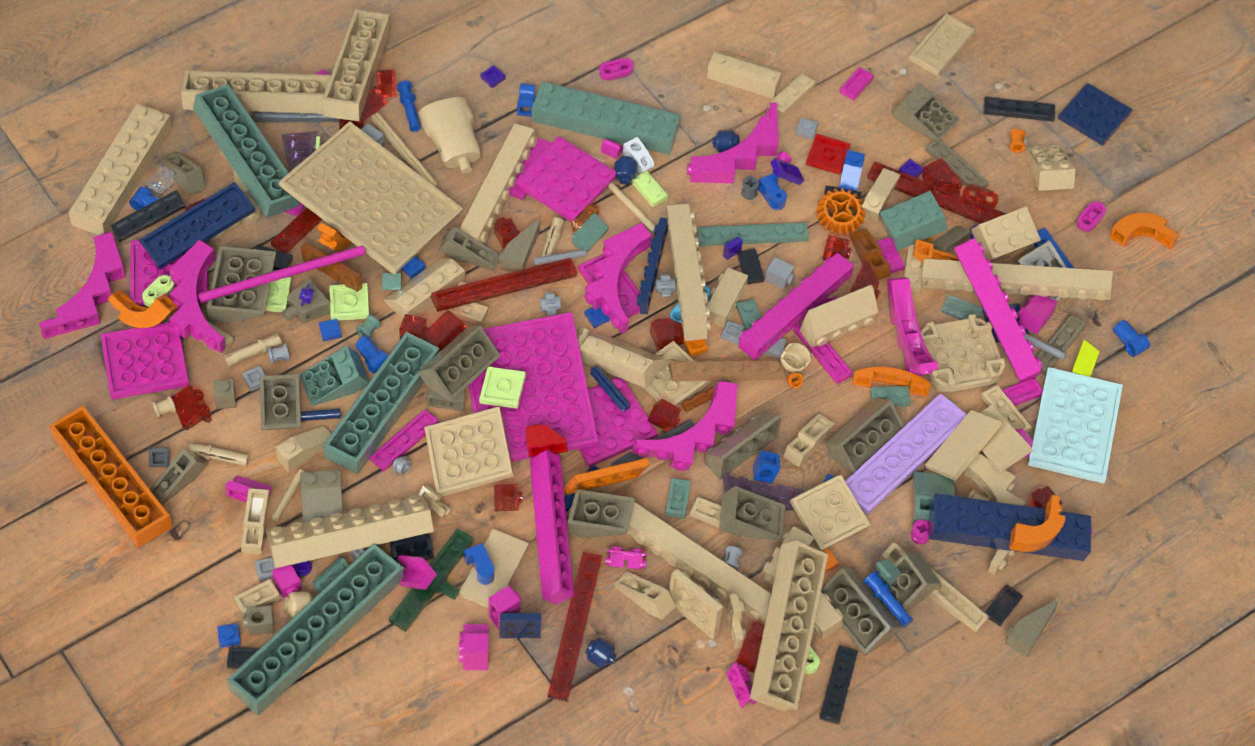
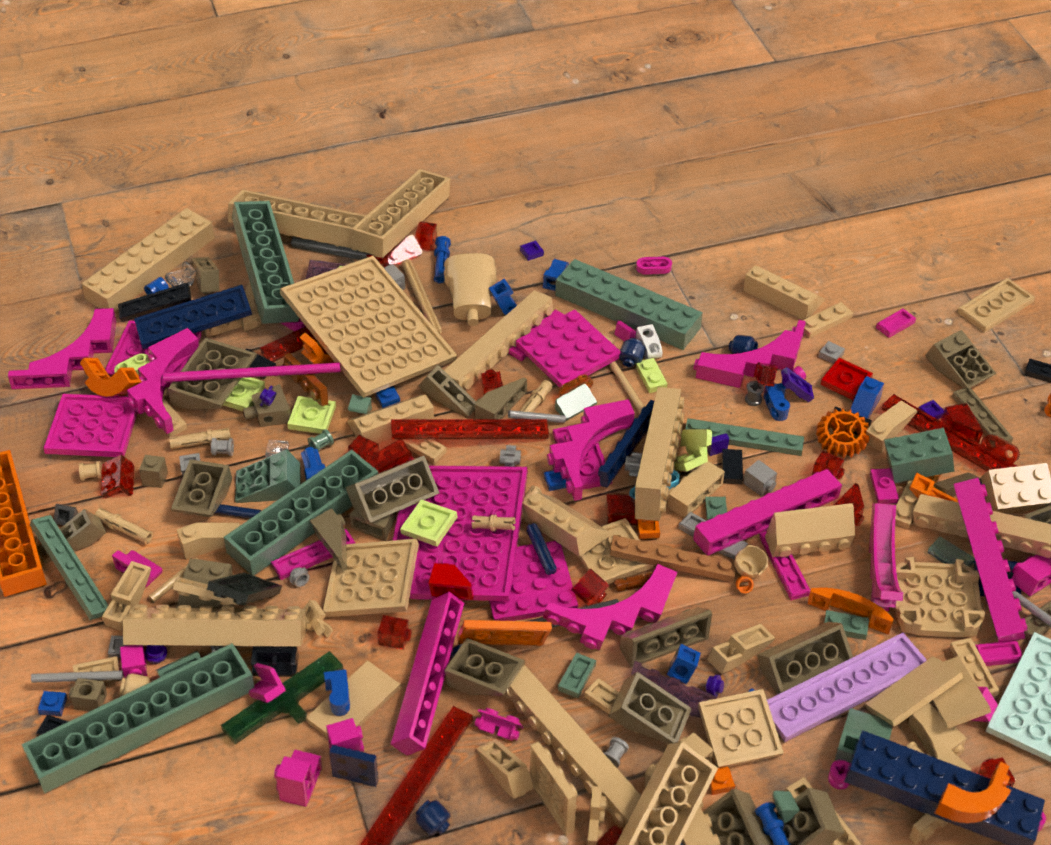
camera: 20 degrees right, 10 degrees down
(190, 506) = (69, 566): none -> sand green plate
(242, 606) = (72, 676): none -> light grey bar
(330, 330) = (284, 434): blue tile -> none
(330, 344) = (276, 446): none -> clear plate
(330, 501) = (186, 587): none -> tan plate
(363, 490) = (243, 588): none -> pearl dark grey plate
(416, 417) = (331, 533): none -> dark tan slope
(486, 136) = (501, 293): none -> blue leg
(562, 375) = (493, 522): none -> tan pin
(718, 257) = (696, 446): none -> yellowish green plate
(757, 168) = (765, 373): none -> clear red piece
(797, 479) = (714, 685): none -> dark purple plate
(870, 251) = (864, 475): dark orange slope -> none

